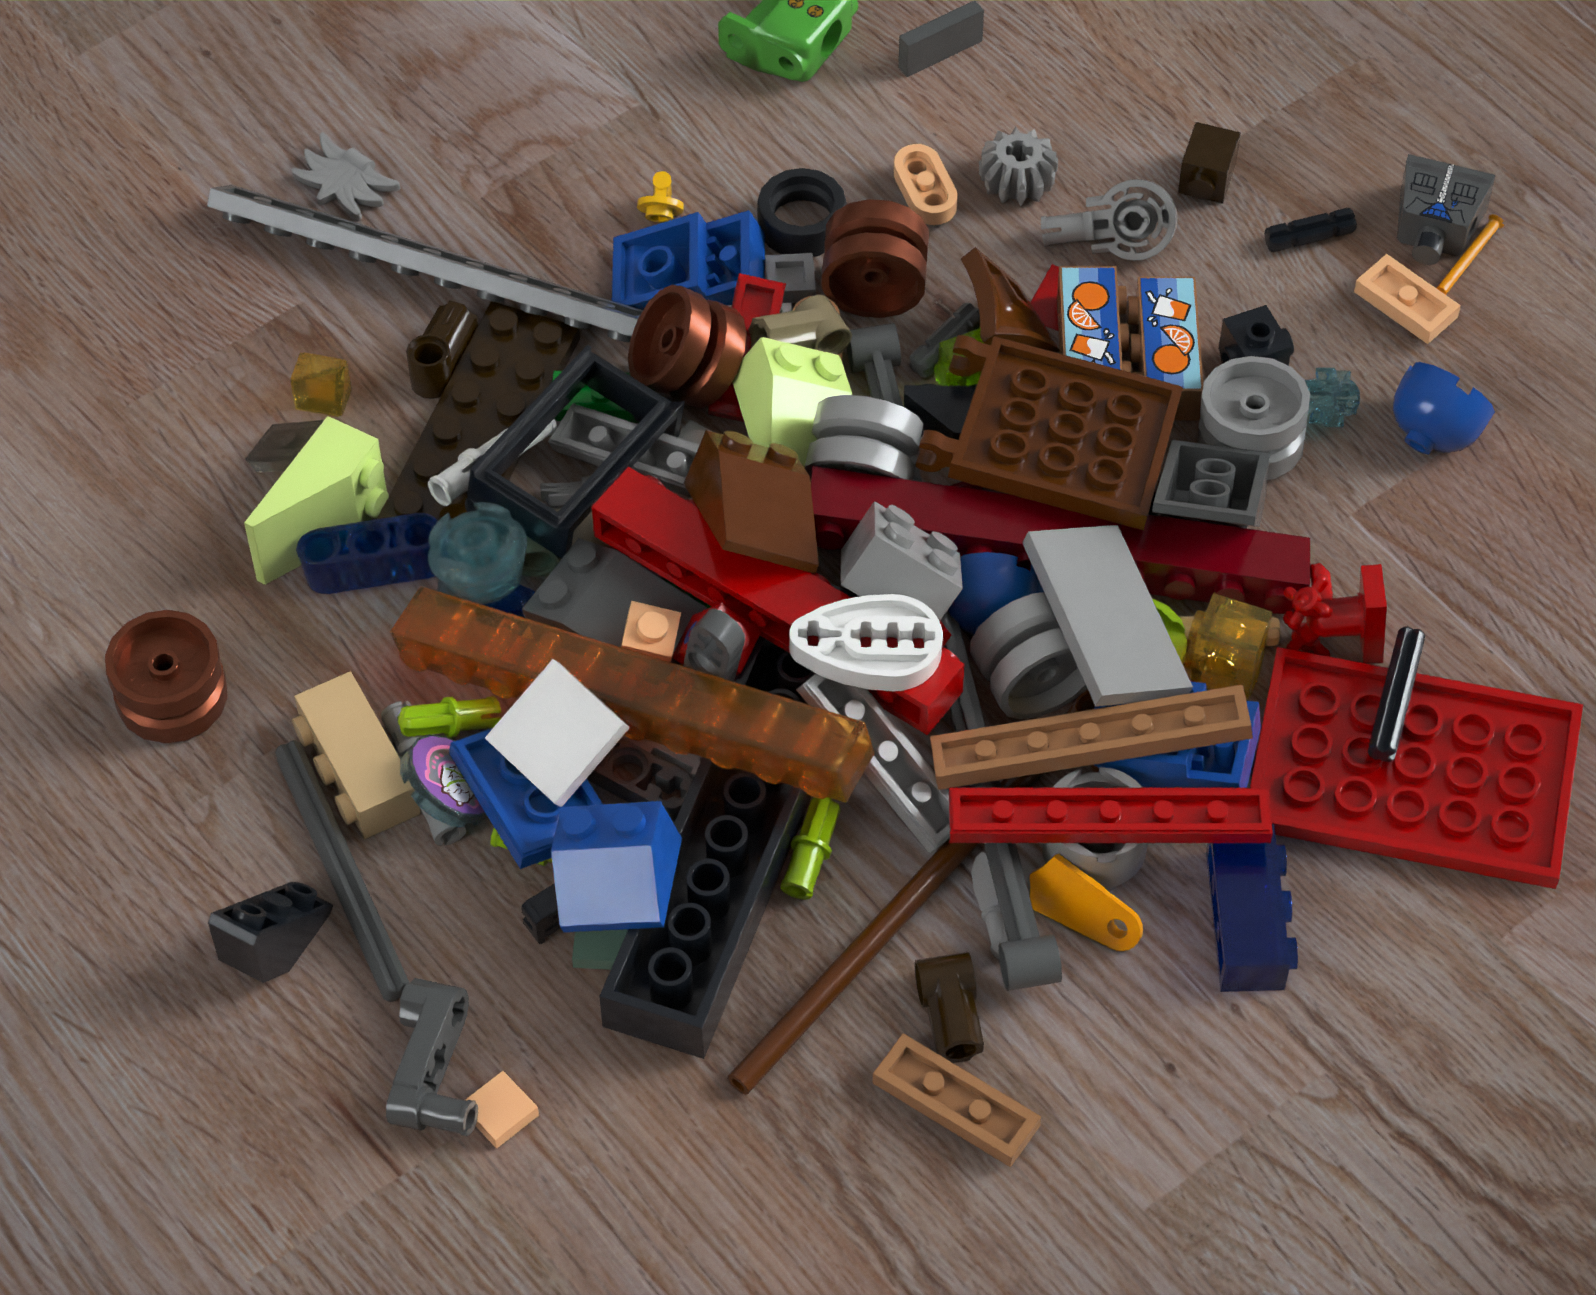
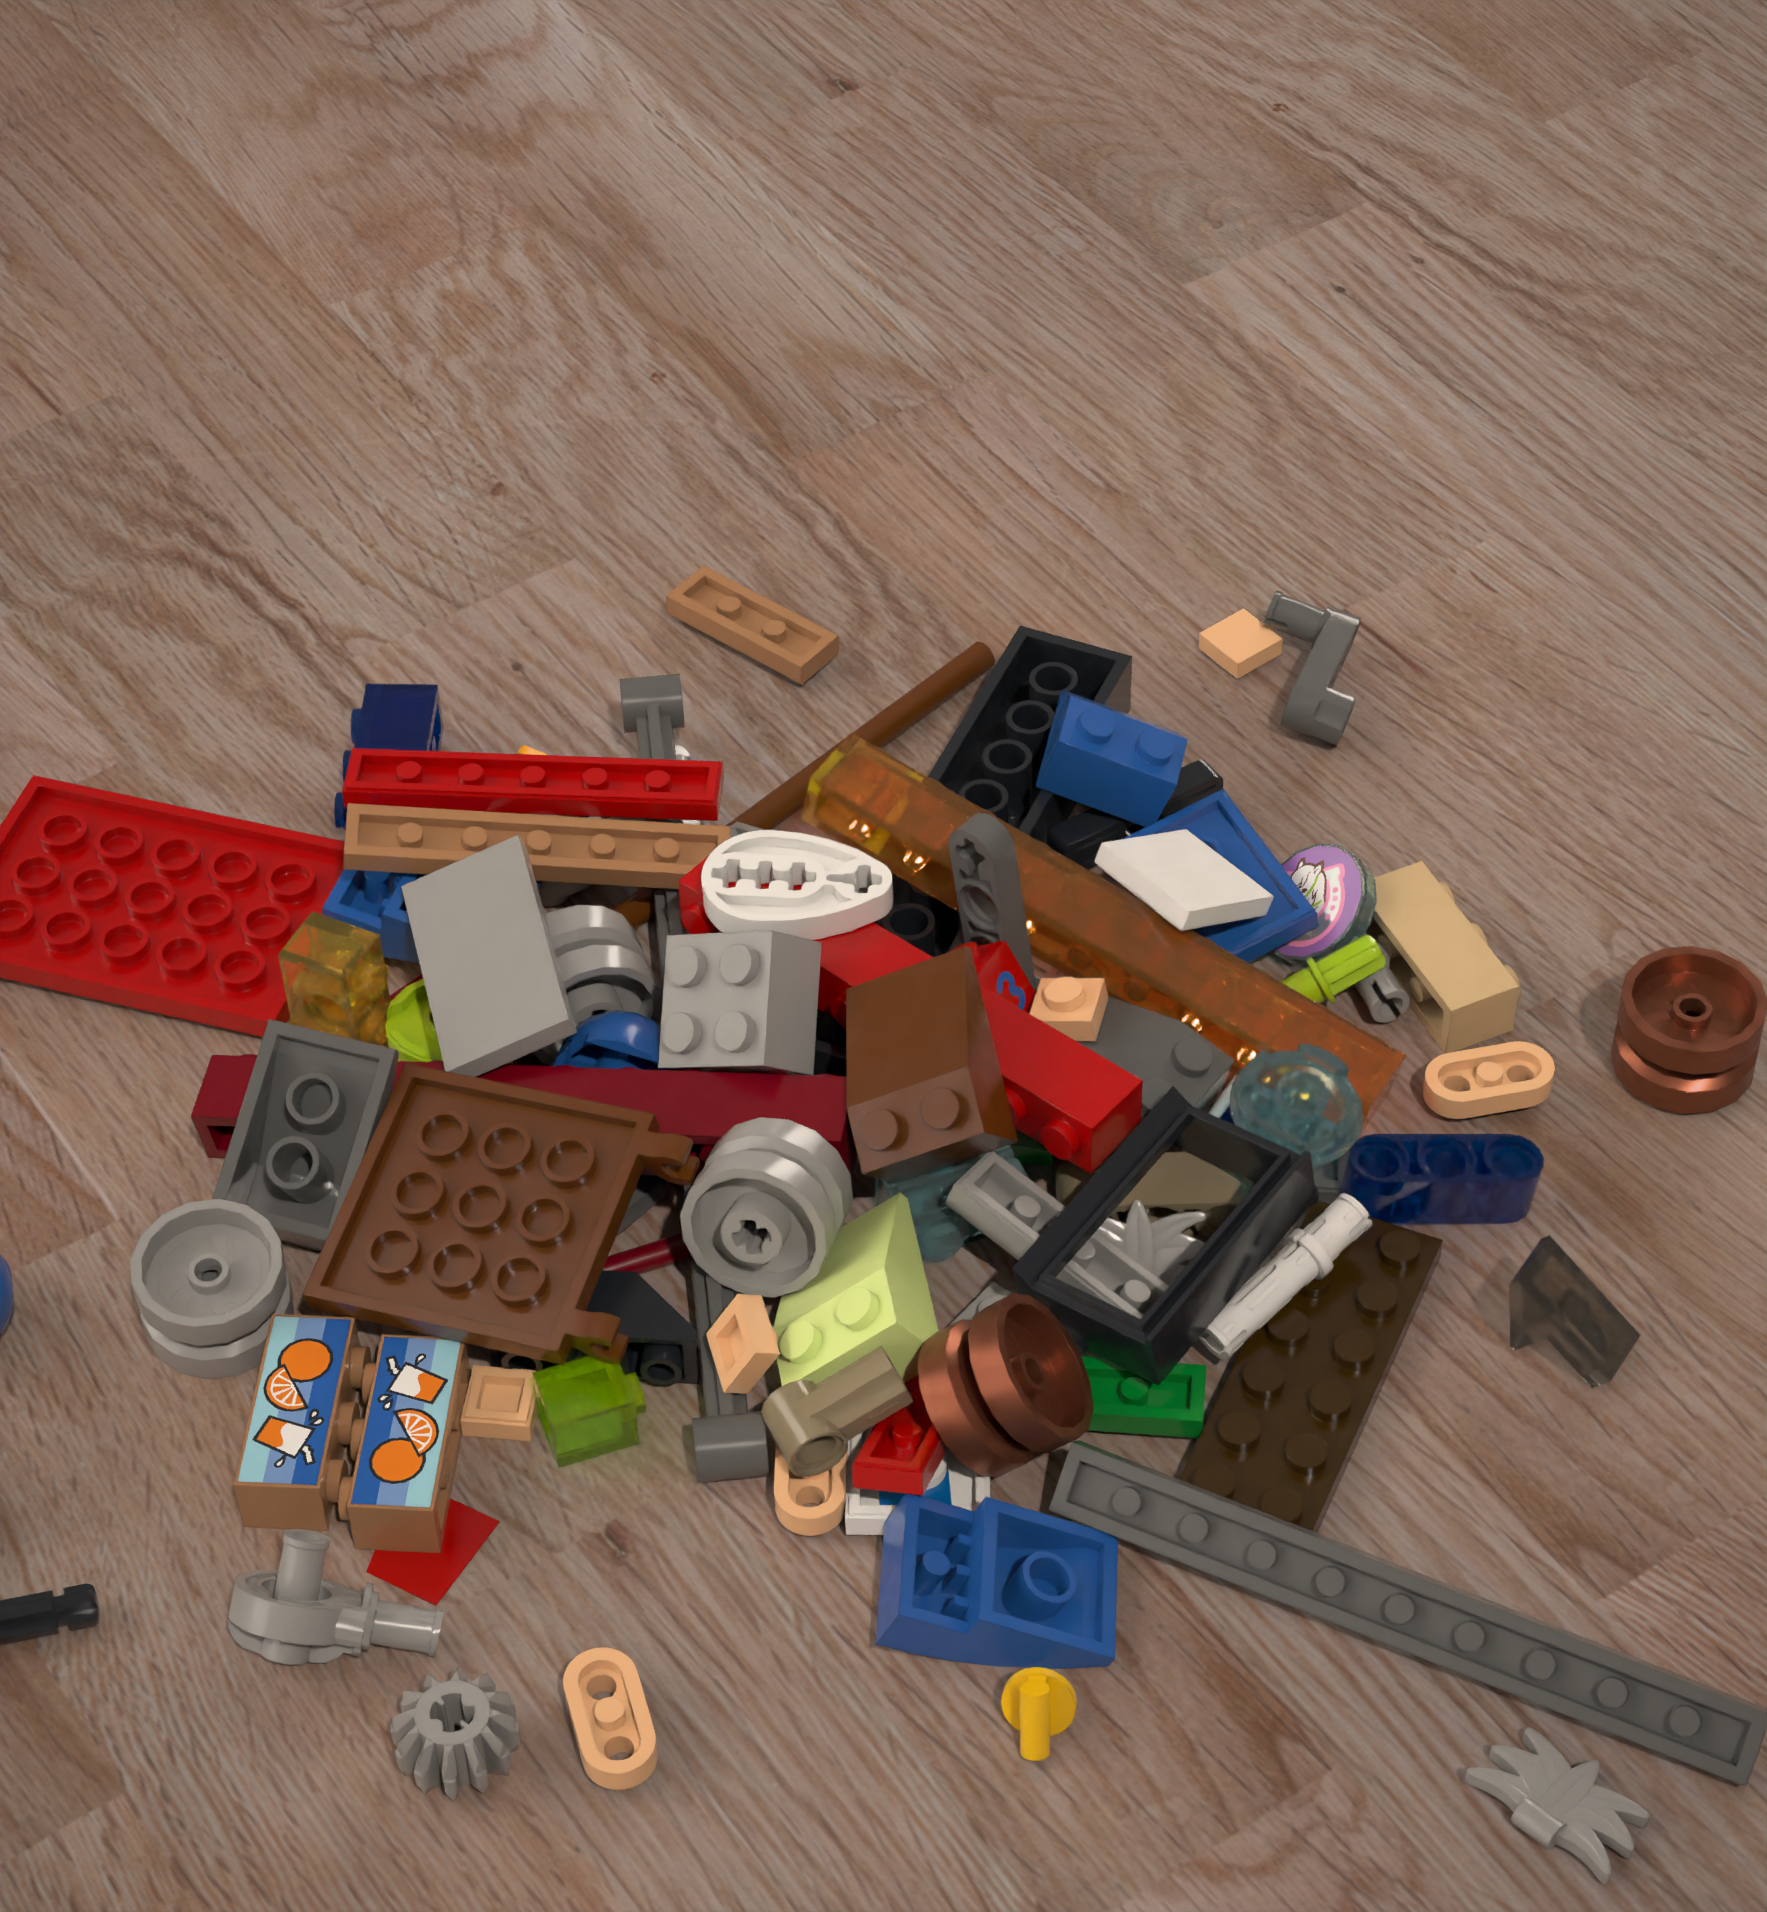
camera: 175 degrees left, 10 degrees down
(268, 930) = (1515, 761): black slope -> none
(321, 384) = (1547, 1432): clear yellow slope -> none
(326, 485) = (1508, 1209): yellowish green slope -> none
(326, 651) = (1488, 1080): none -> light nougat plate
(342, 870) = (1435, 850): dark grey axle -> none
(439, 349) = (1373, 1471): dark brown piece -> none
(795, 271) = (842, 1566): light grey plate -> none
(797, 186) = (808, 1629): black tyre -> none
(867, 372) = (743, 1343): none -> light nougat plate
(875, 258) = (710, 1529): copper wheel -> none
(925, 357) = (619, 1469): dark grey axle -> none
(949, 993) = (744, 704): dark brown piece -> none
(1004, 306) = (523, 1459): reddish brown plate -> none
(1209, 162) = (148, 1722): dark brown brick -> none
(1256, 335) = (176, 1397): black brick -> none
(1332, 397) = (94, 1330): clear light blue gear -> none
(1342, 616) = (164, 1026): red piece -> none
(1396, 694) = (146, 946): black axle -> none

